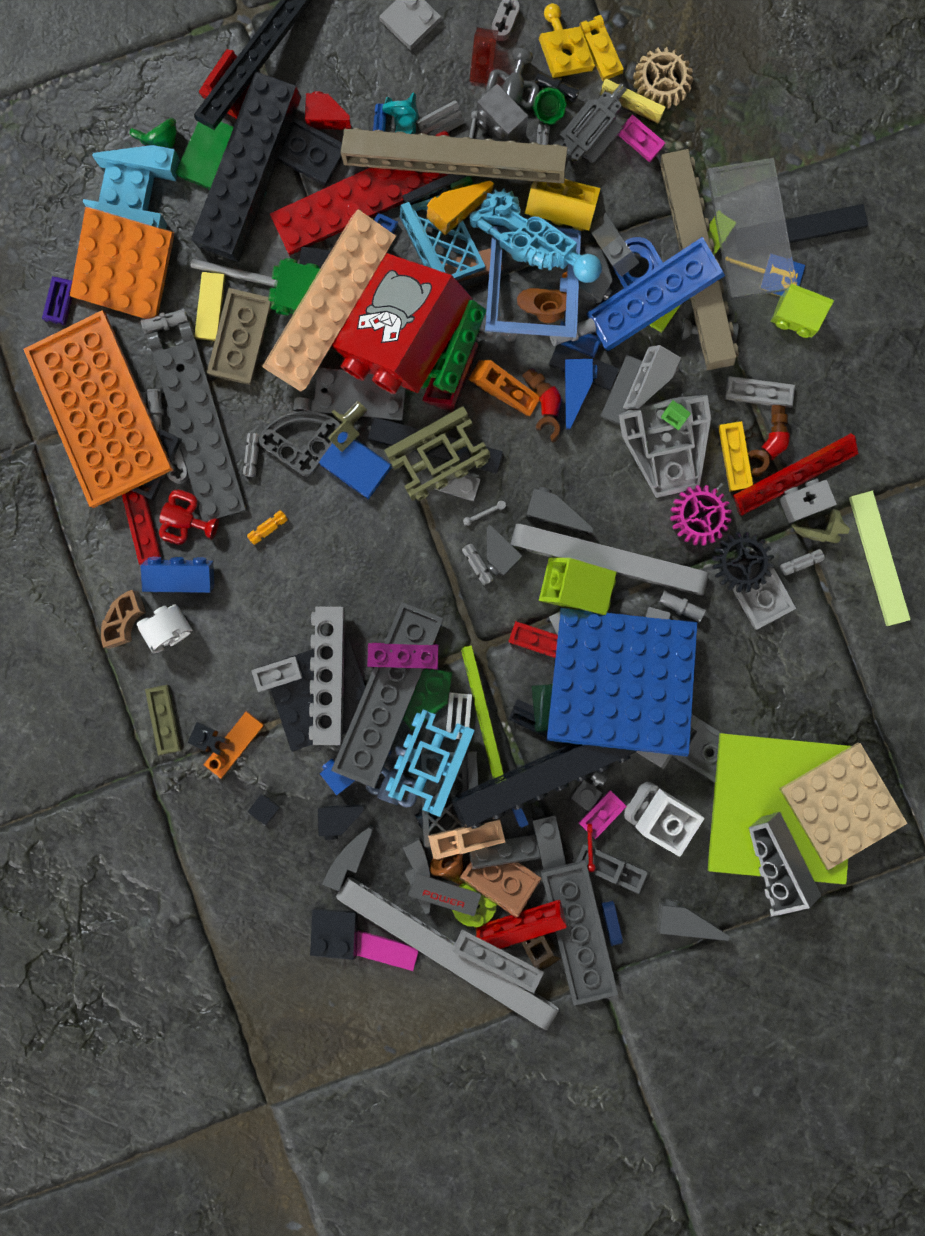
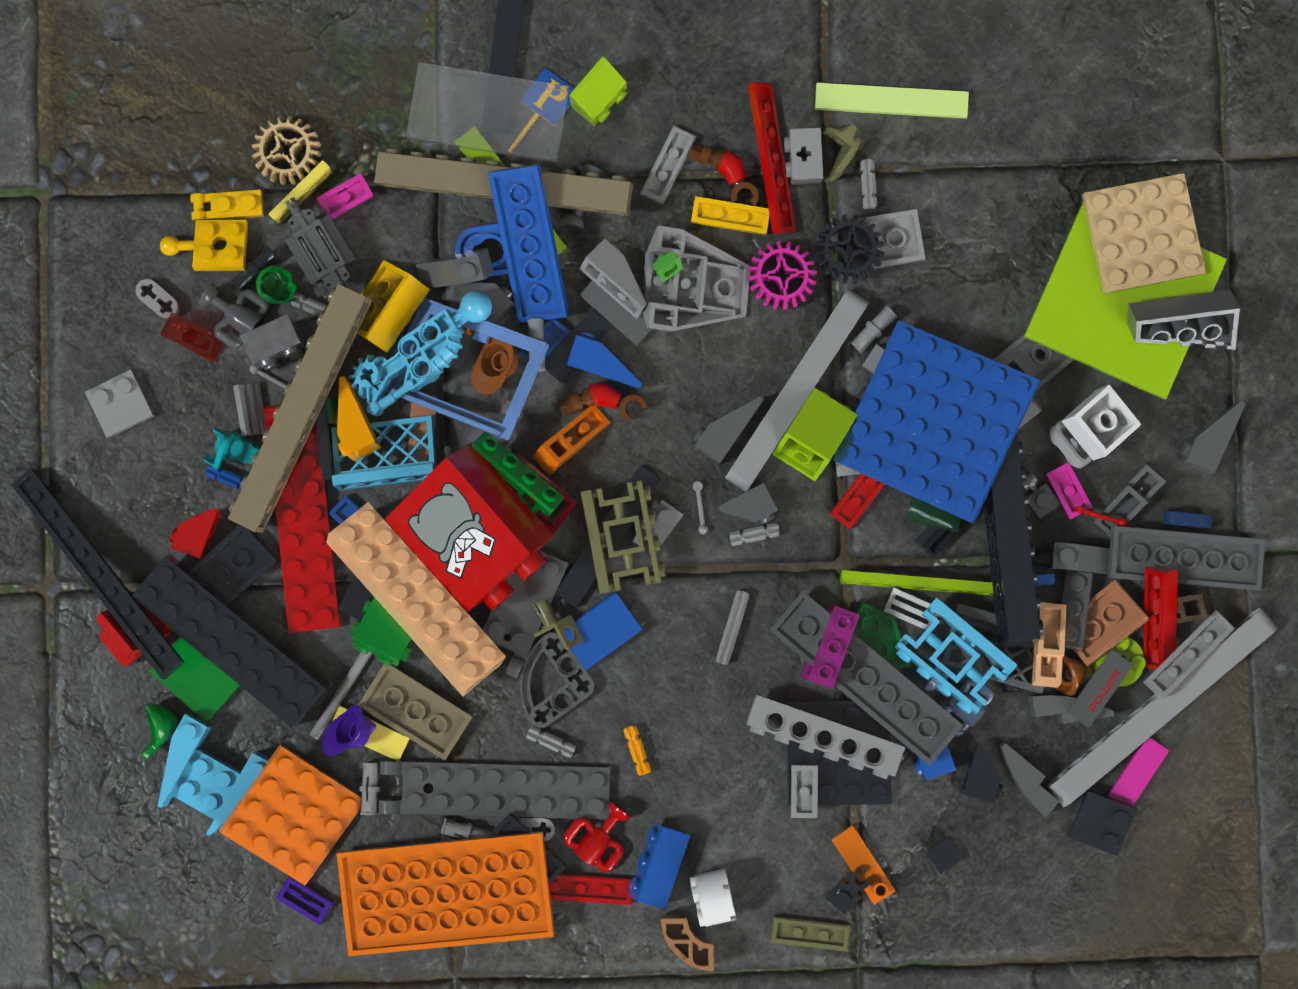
camera: 70 degrees left, 0 degrees up
(203, 285) = (347, 731): none -> dark purple piece
(388, 572) = (732, 627): none -> light grey axle

